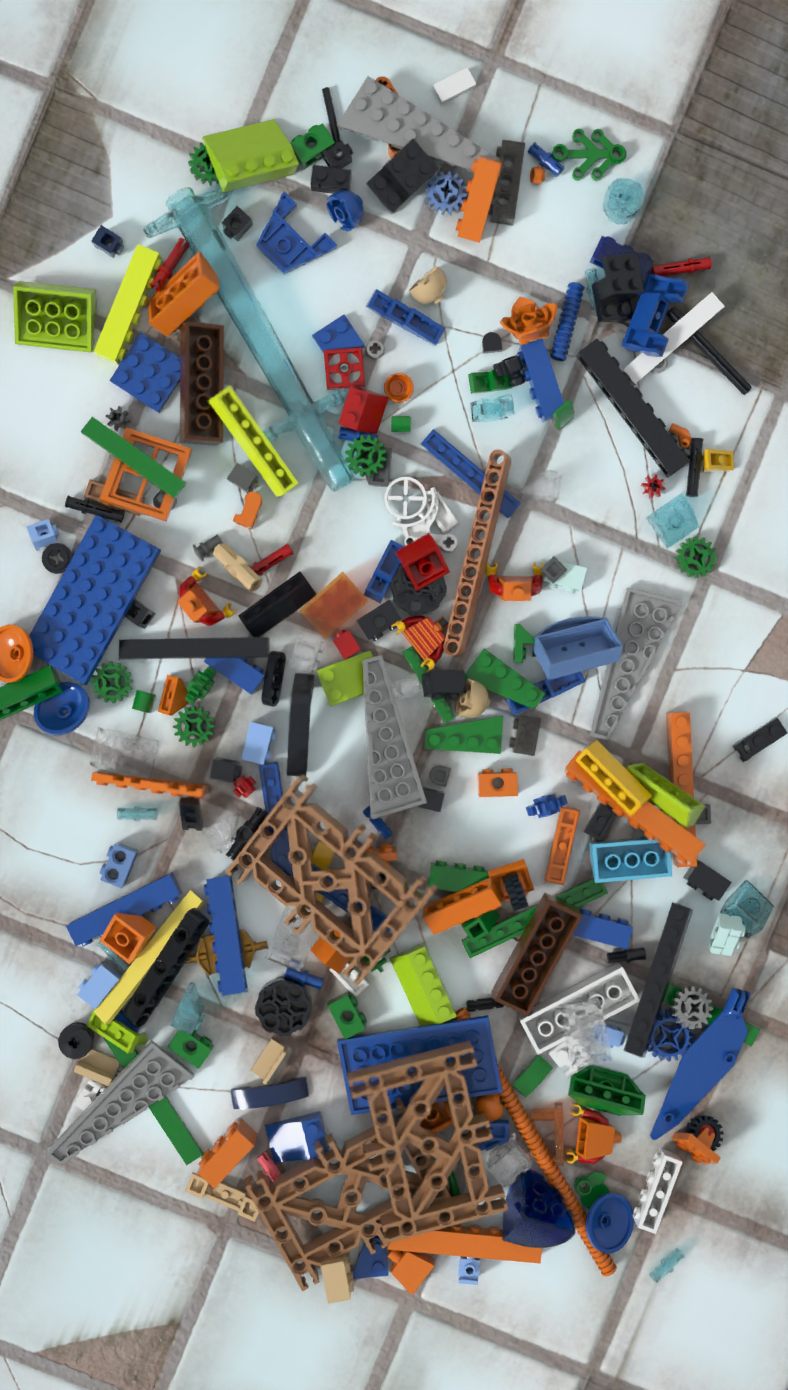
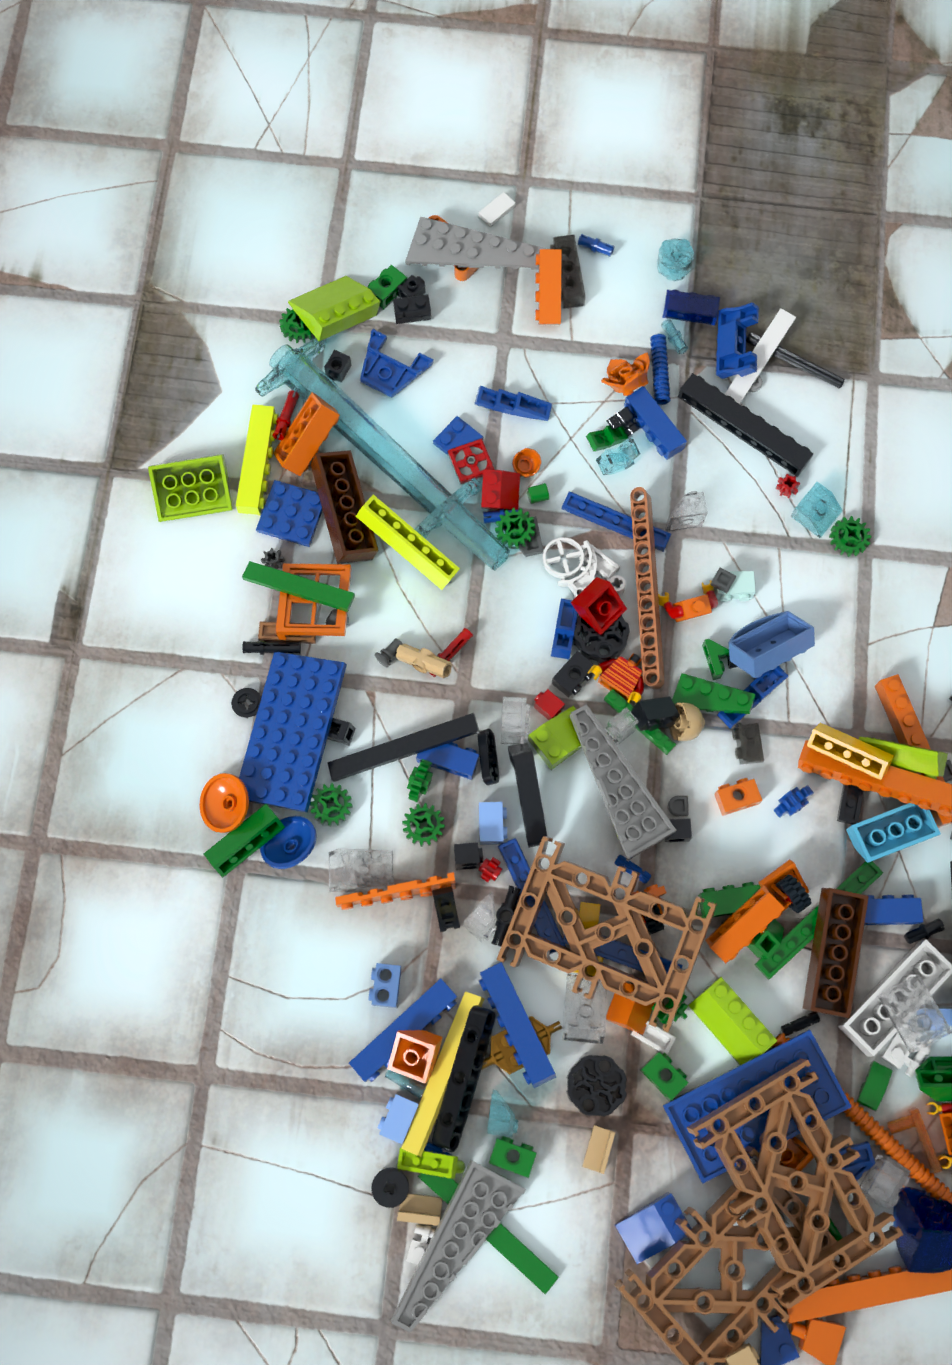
camera: 10 degrees left, 15 degrees down
(42, 533) = (227, 683): light blue brick -> none
(103, 237) = (221, 407): dark blue brick -> none
(137, 813) = (390, 928): clear light blue pin -> none
(143, 701) = (366, 815): green brick -> none
(173, 696) = (394, 801): orange slope -> none
(198, 604) = (395, 705): torso -> none
(224, 1194) = (596, 1316): tan slope -> none
(227, 1152) = (585, 1263): orange brick -> none
(243, 478) = (405, 581): dark grey brick -> none
(250, 511) = (421, 607): orange leg -> none
(269, 1094) = (609, 1187): dark blue slope -> none
(269, 1166) = (627, 1263): coral axle -> none
(277, 605) = (472, 686): black panel -> none
(304, 977) = (608, 1049): blue pin -> none
(331, 114) = (394, 257): black bar -> none
(334, 605) = (526, 670): clear orange brick -> none
(346, 208) = (432, 328): blue cylinder -> none
(379, 353) = (491, 443): light grey bush -> none
(402, 176) = (474, 288): black bracket -> none
(430, 287) = (528, 371): tan cylinder -> none
(454, 194) = (524, 289): medium blue gear -> none
(465, 1275) = (882, 1330): light blue brick -> none
(472, 736) = (696, 760): green wing -> none
(490, 1105) = (843, 1125): orange hair -> none
(491, 343) = (598, 405): black tile -> none
(537, 175) = (592, 259): orange plate -> none
(562, 845) = (821, 840): orange plate -> none
(564, 414) = (685, 444): green slope -> none
(592, 154) = (634, 231): green plant -> none
(617, 288) = (696, 327): black bracket -> none
(640, 630) = (825, 607): light grey wing -> none
(682, 267) = (751, 296): red pin -> none
(683, 435) = (799, 436): orange arm -> none
(696, 444) = (819, 460): black pin -> none
(717, 460) = (837, 446): yellow slope -> none

